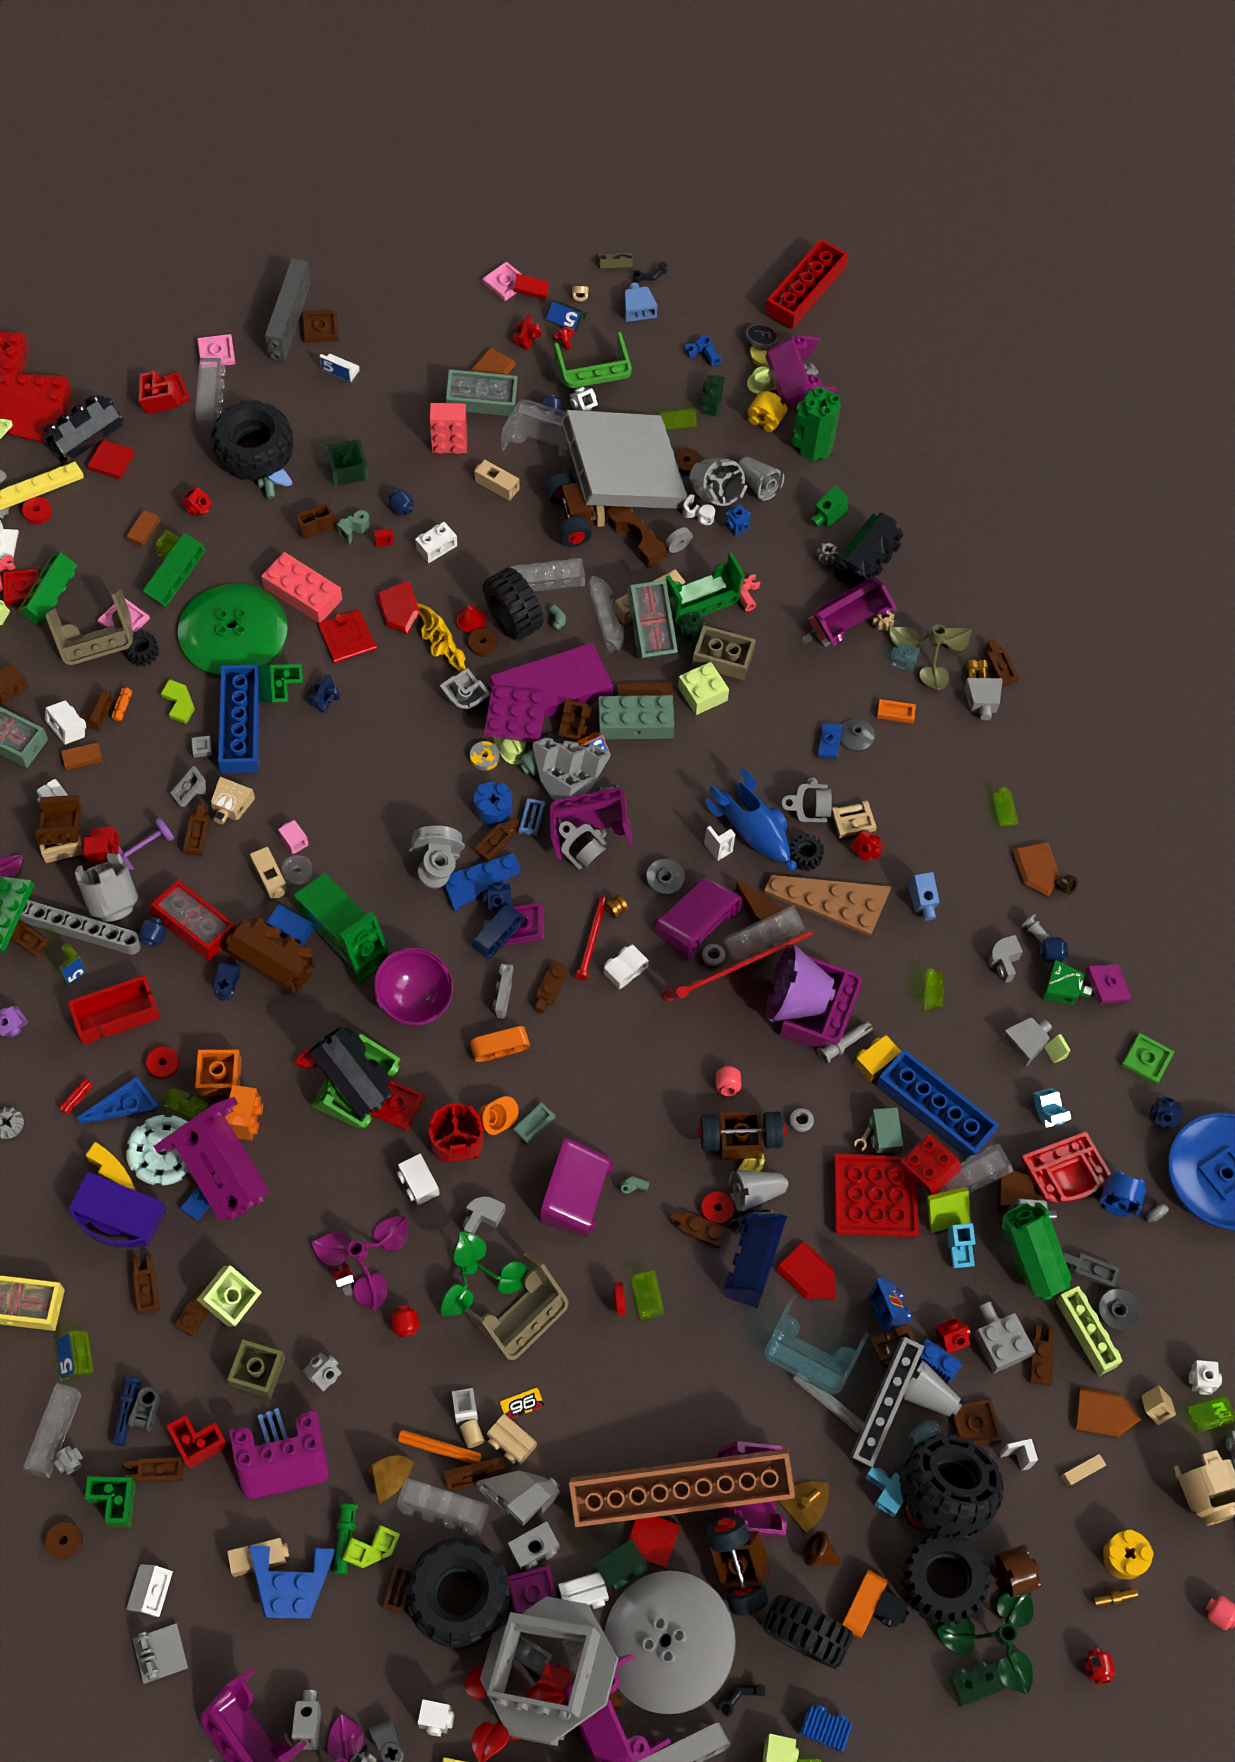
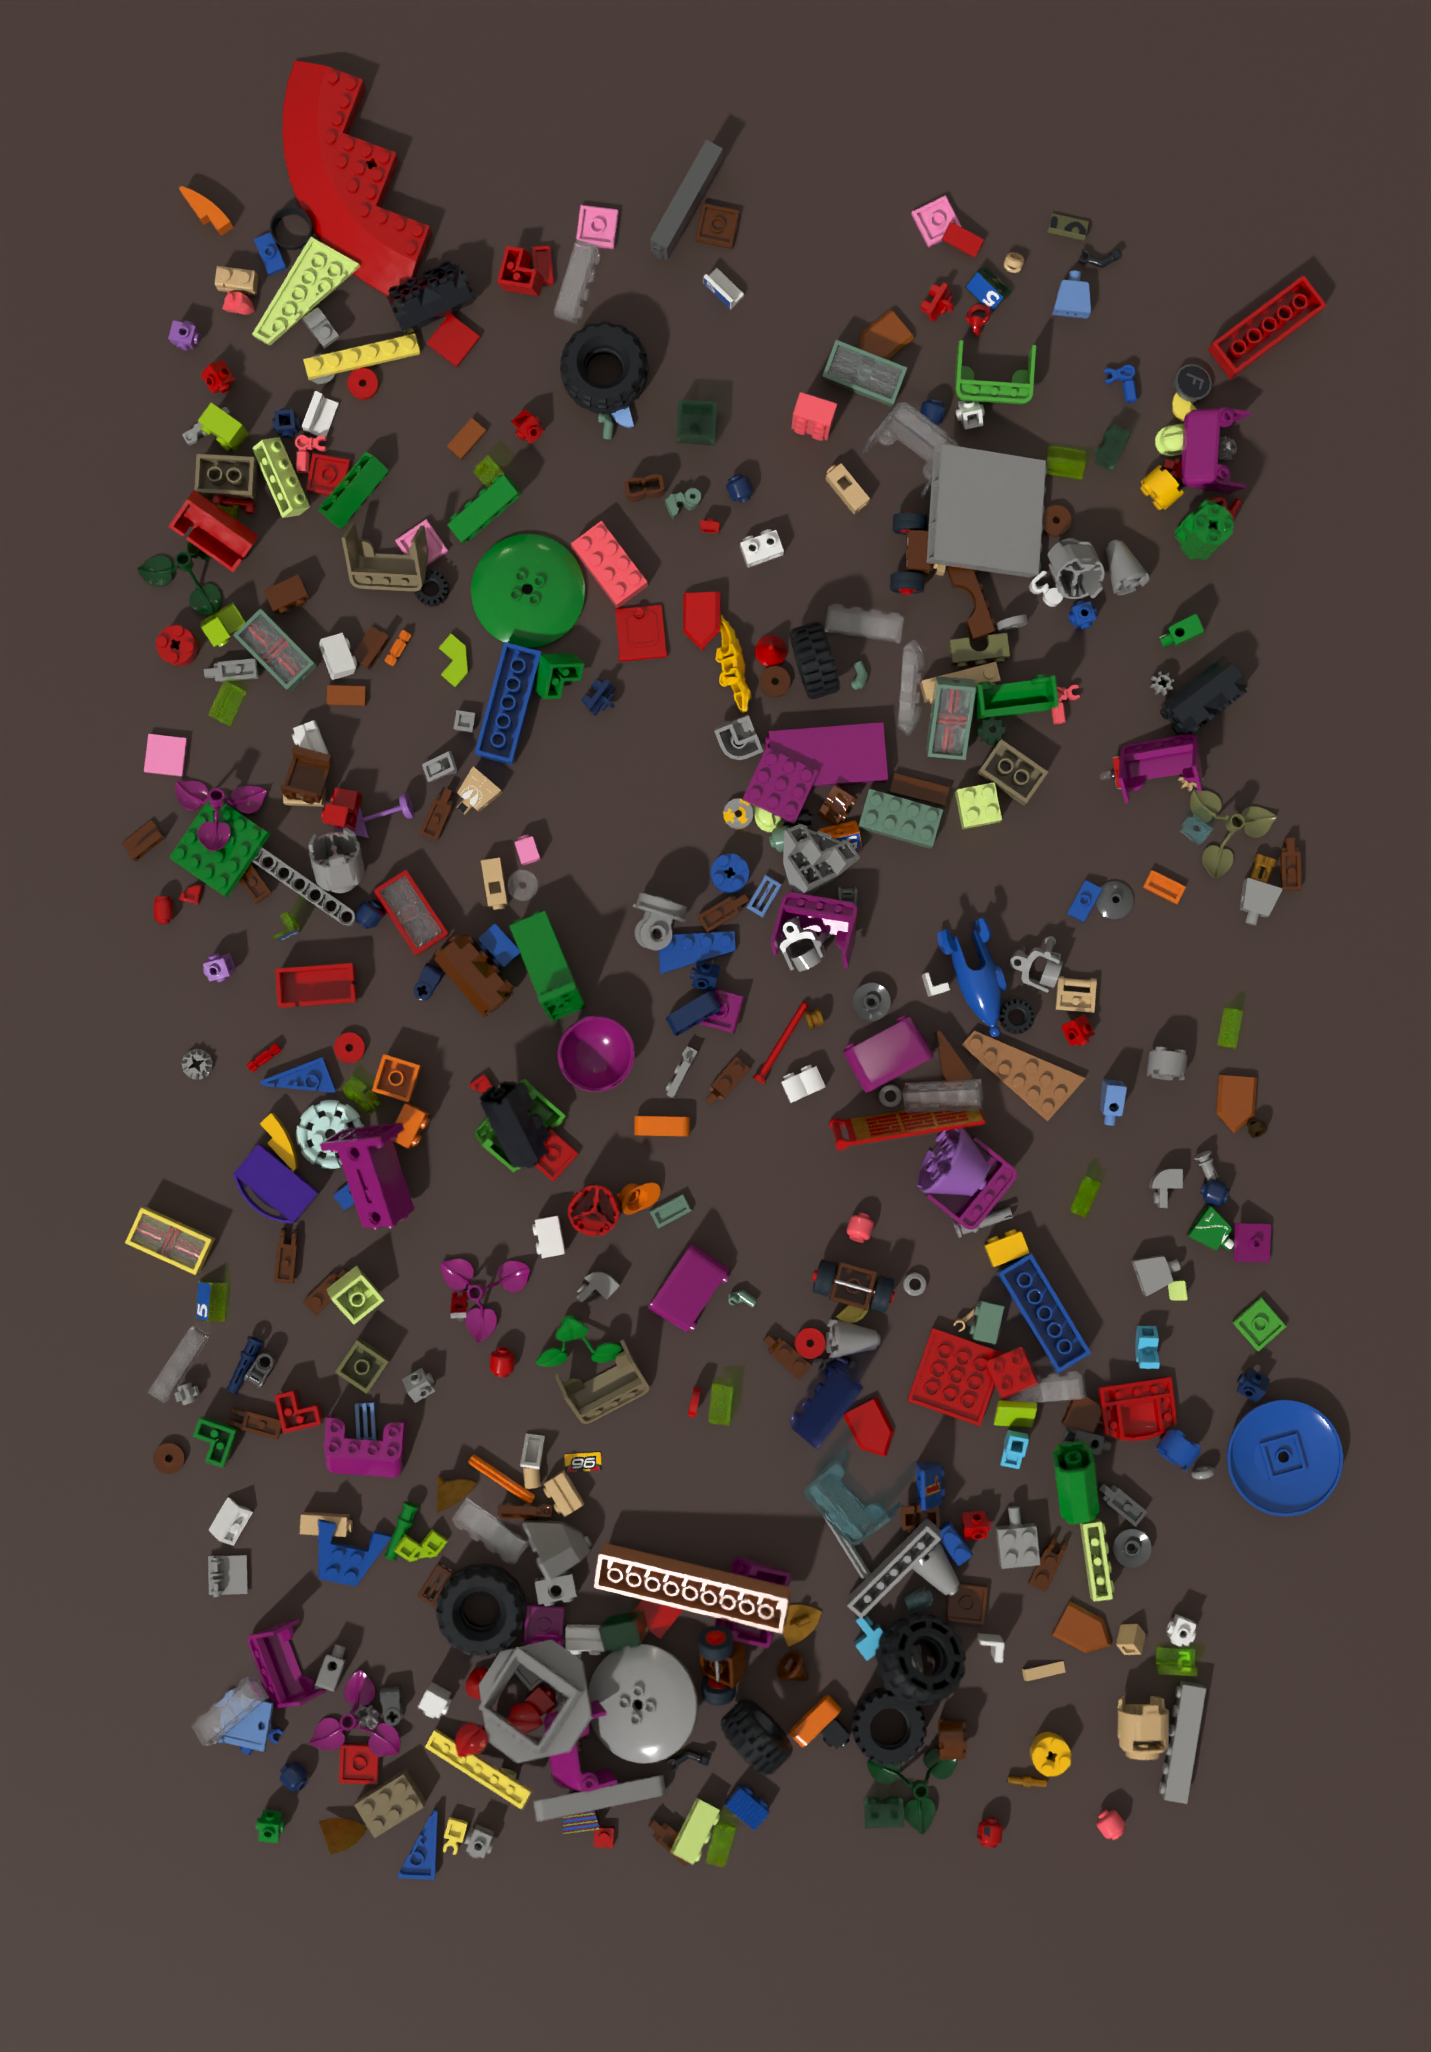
camera: 15 degrees right, 25 degrees up
(670, 560) = (962, 653): none -> olive arch
(961, 849) = (1167, 1064): none -> light grey brick

